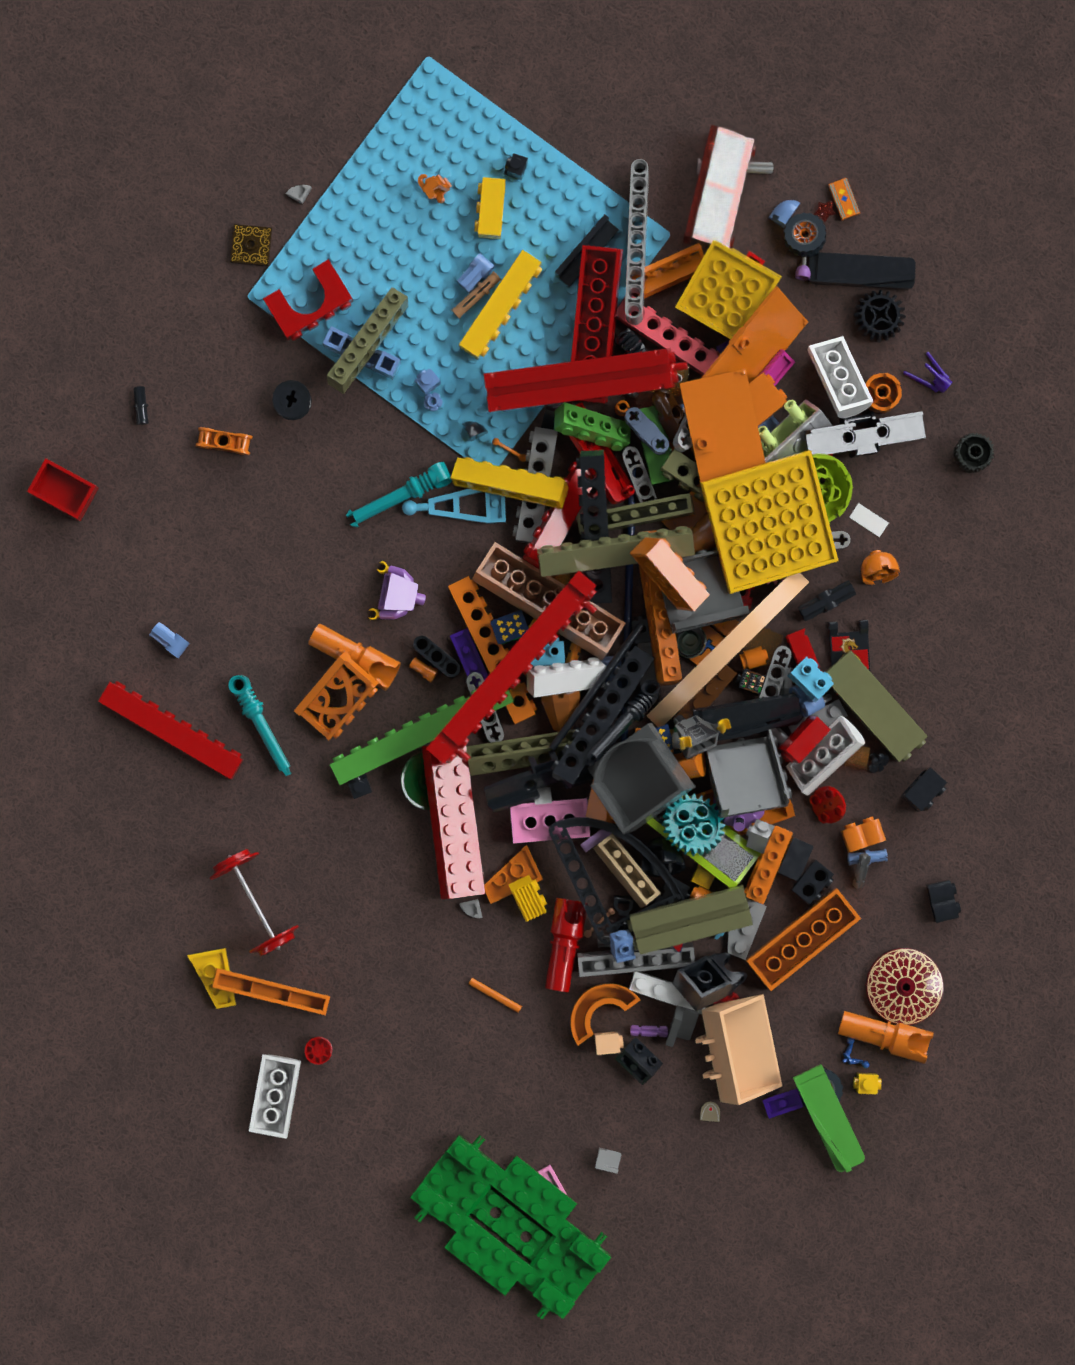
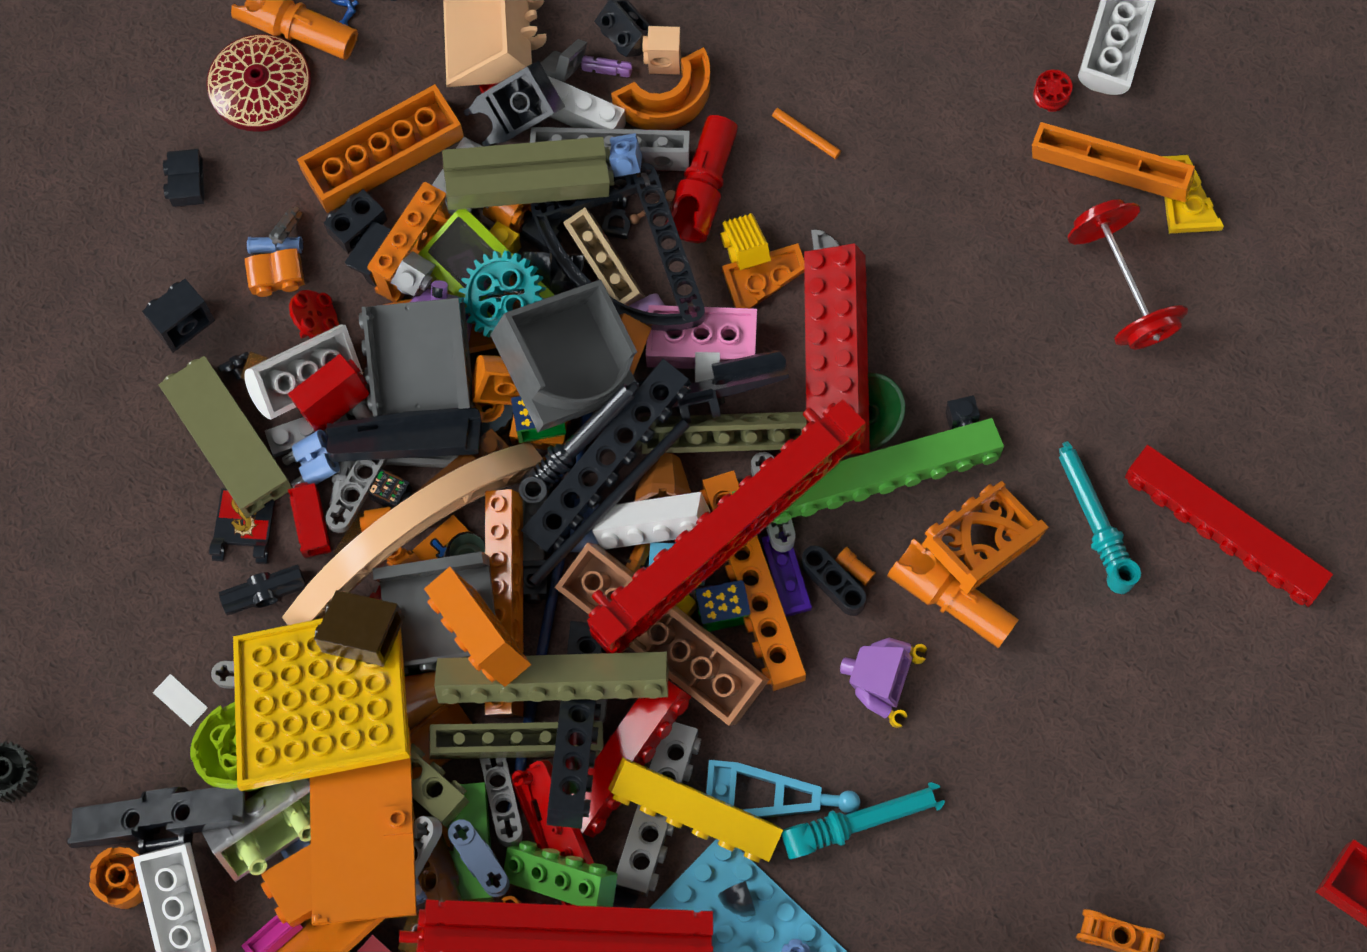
camera: 165 degrees left, 15 degrees down
(173, 642) = (1216, 648): medium blue piece -> none
(522, 457) = (672, 856): orange hinge -> none
(696, 735) = (478, 411): torso -> none
(751, 569) = (359, 628): none -> dark brown brick
(809, 681) = (303, 472): medium azure brick -> none
(879, 566) = (177, 626): orange cylinder -> none
(941, 380) = (32, 887): dark purple plant -> none

